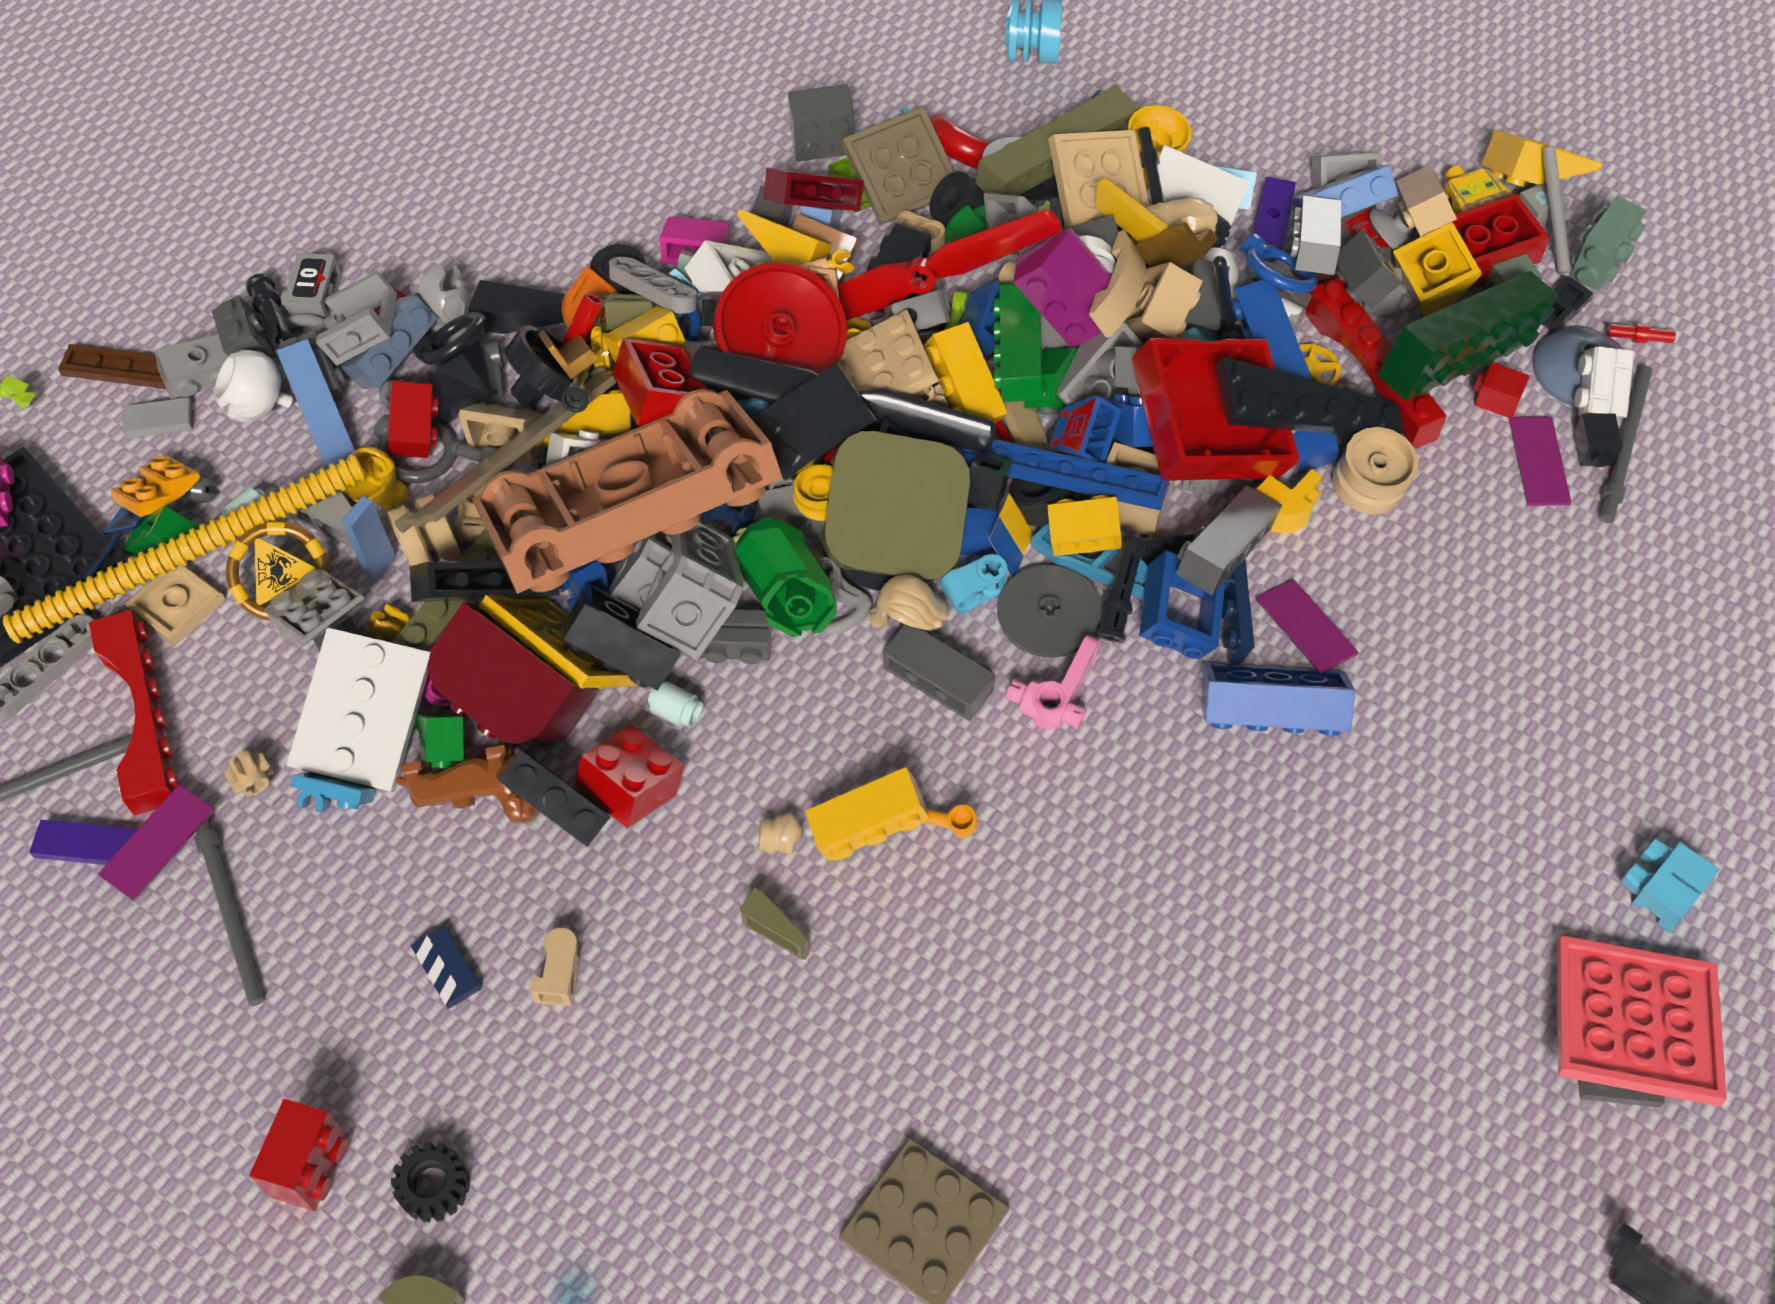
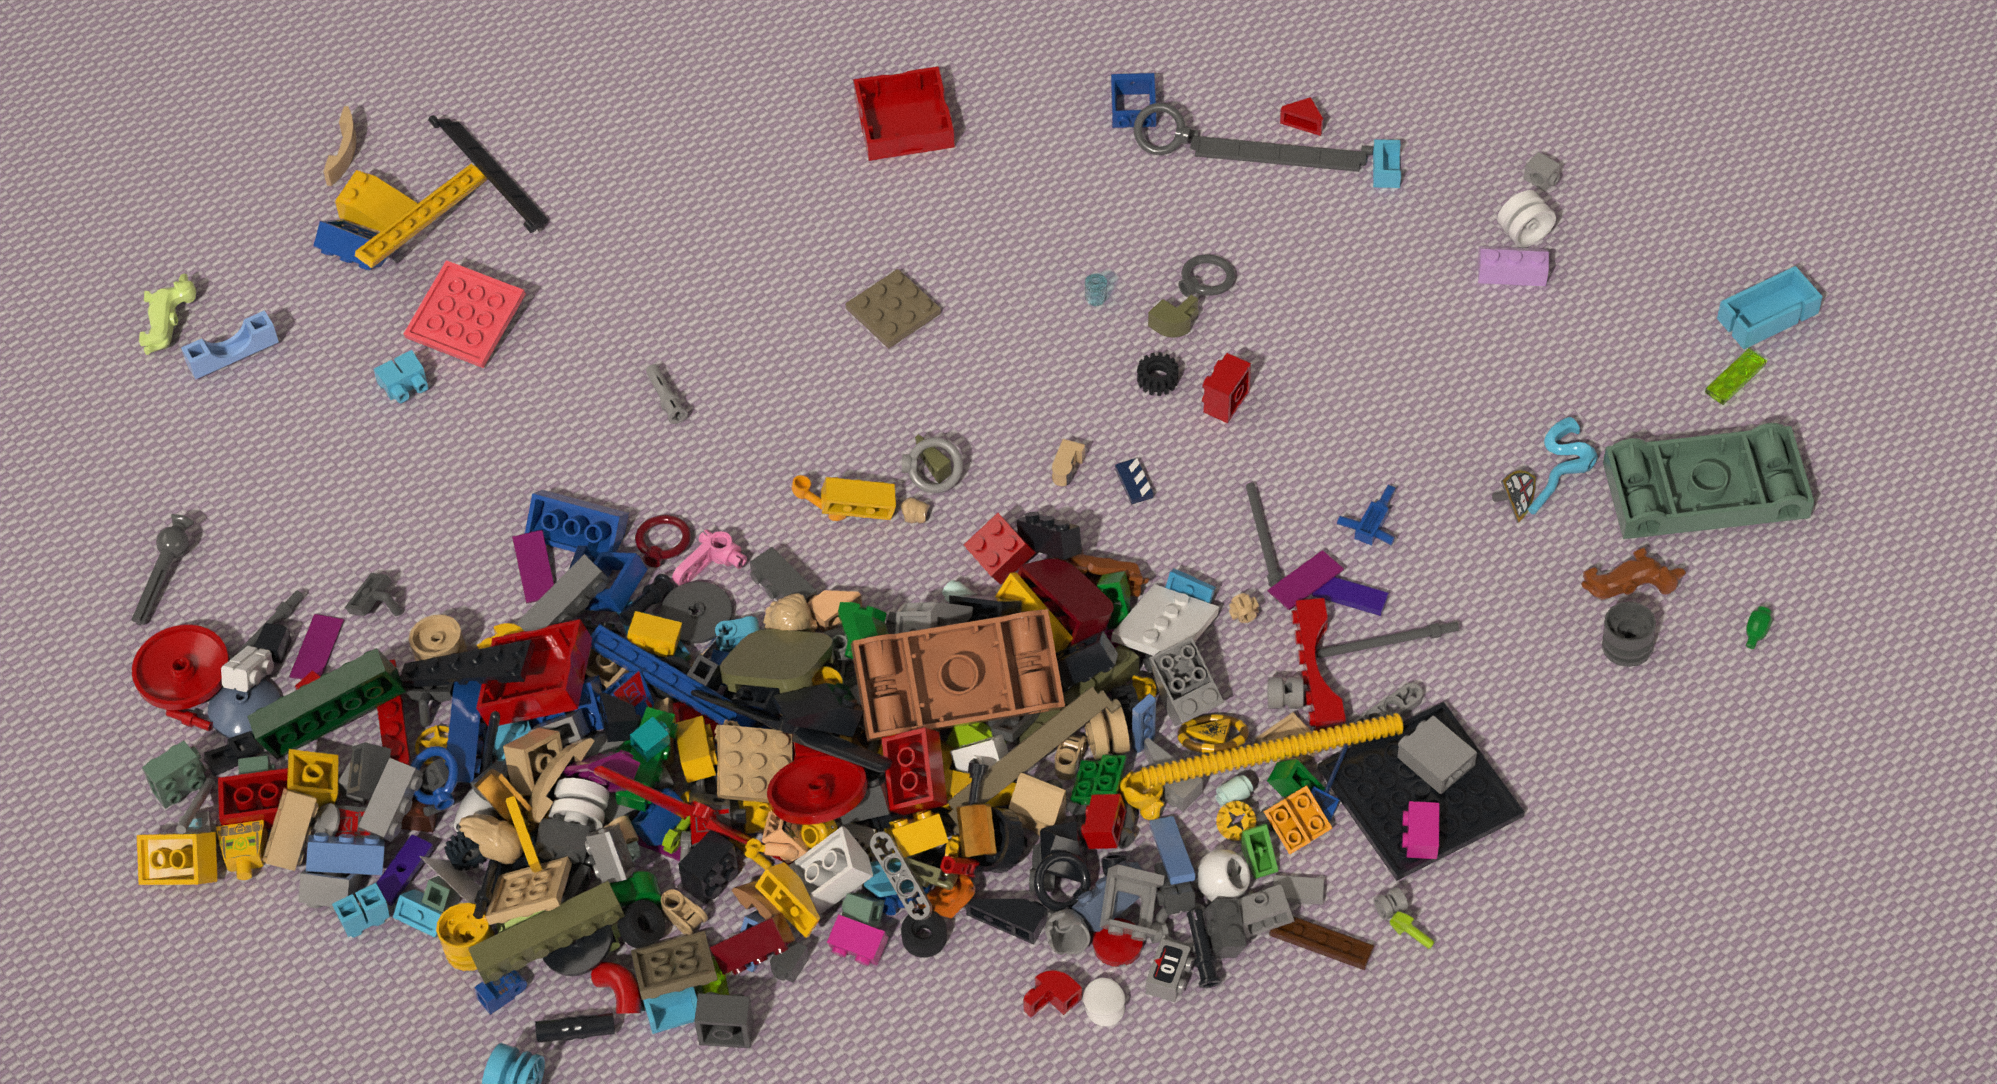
camera: 165 degrees left, 5 degrees down
(33, 416) = (1390, 903): none -> light grey wheel
(51, 977) = (1370, 525): none -> blue piece
(181, 655) = (1276, 692): none -> light grey wheel
(211, 448) = (1258, 851): none -> bright green slope
(240, 475) = (1236, 808): none -> yellow gear
(386, 245) = (1104, 1001): none -> white piece
(396, 573) = (1128, 698): none -> black tyre
(423, 472) = (1098, 778): none -> green slope
(448, 242) = (1054, 988): none -> red brick
(804, 901) = (910, 462): none -> light grey piece
(855, 647) = (826, 604): none -> light nougat slope
(993, 103) = (575, 1027): none -> black axle
(1017, 328) = (650, 738): none -> teal brick
(1076, 373) = (617, 718): none -> black slope
(1142, 676) = (654, 555): none -> dark red piece
(1229, 940) = (669, 400): none -> light grey pin
(1290, 144) = (372, 910): none -> medium azure hips
(1511, 531) = (371, 591): none -> dark grey plate
(1694, 375) = (179, 667): none -> red dish

